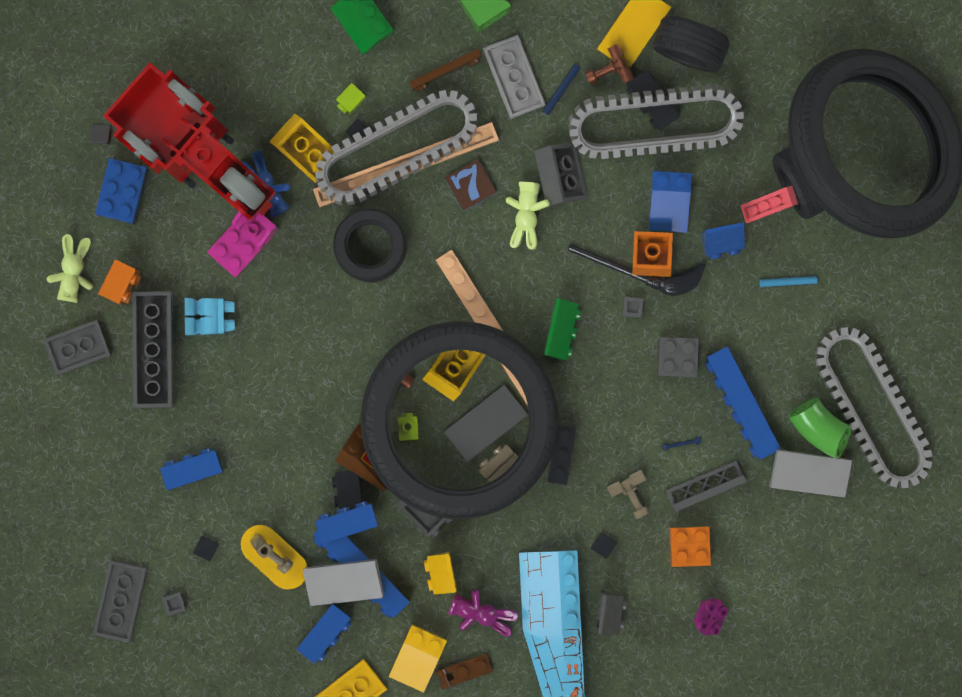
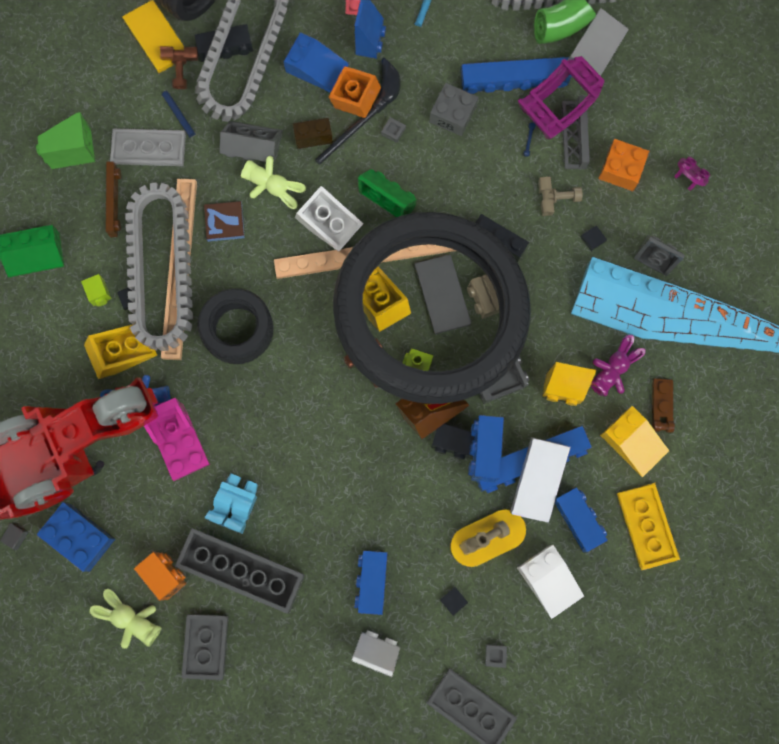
camera: 70 degrees left, 10 degrees down
(132, 498) = (376, 653): none -> white slope
(258, 627) = (551, 581): none -> white slope
(511, 285) = (328, 219): none -> white slope
(593, 231) = (313, 133): none -> dark brown brick
(708, 445) = (542, 115): none -> magenta wedge

